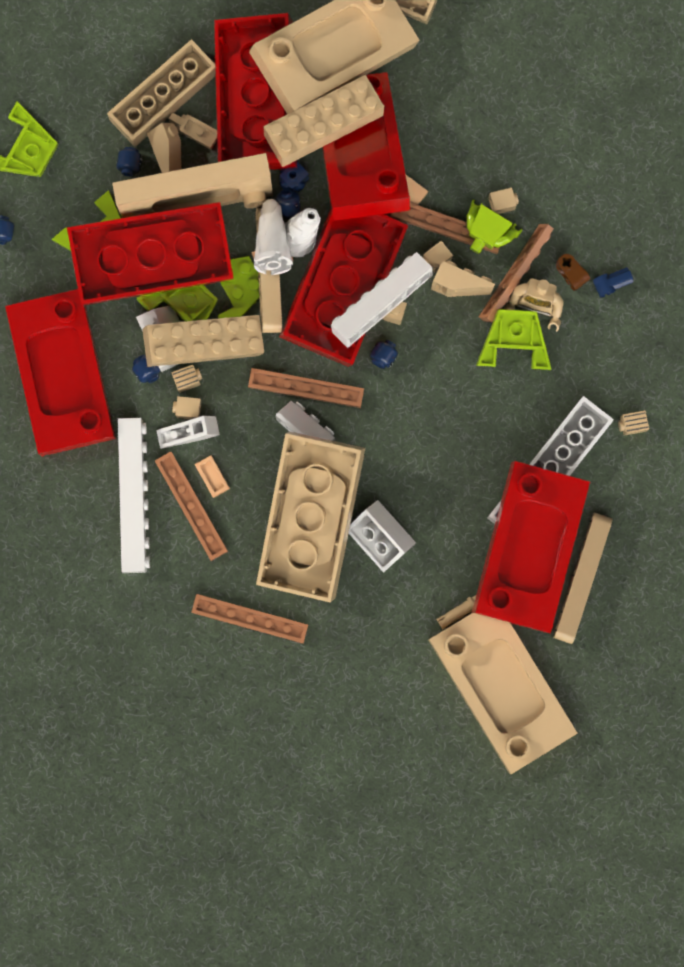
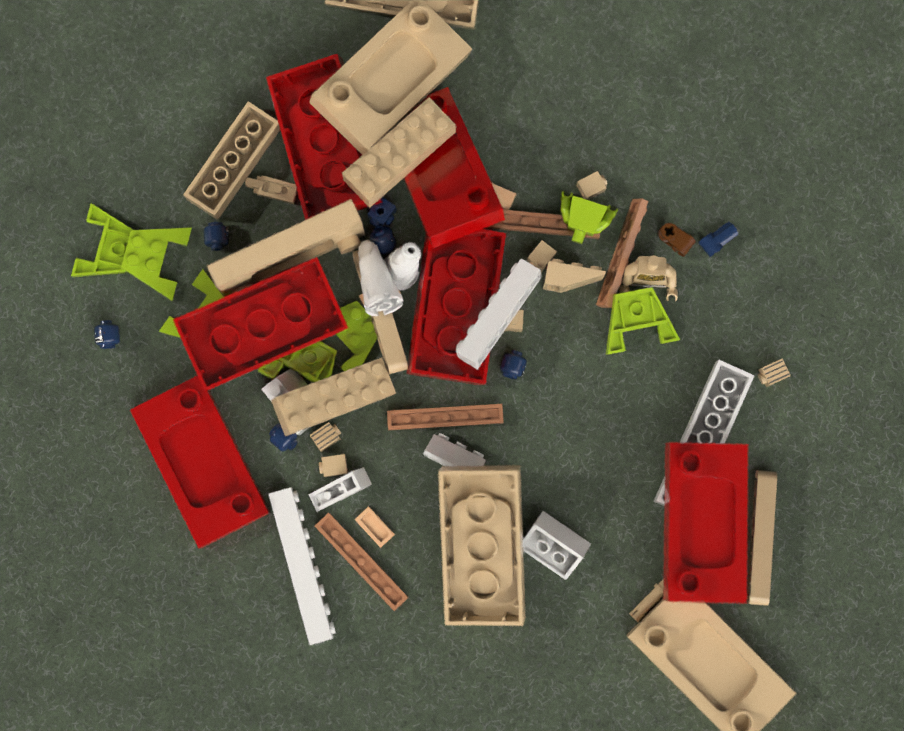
camera: 10 degrees left, 0 degrees up
(57, 162) = (146, 254): none -> lime wing
(166, 146) = (250, 214): tan slope -> none
(249, 618) = (446, 658): nougat plate -> none

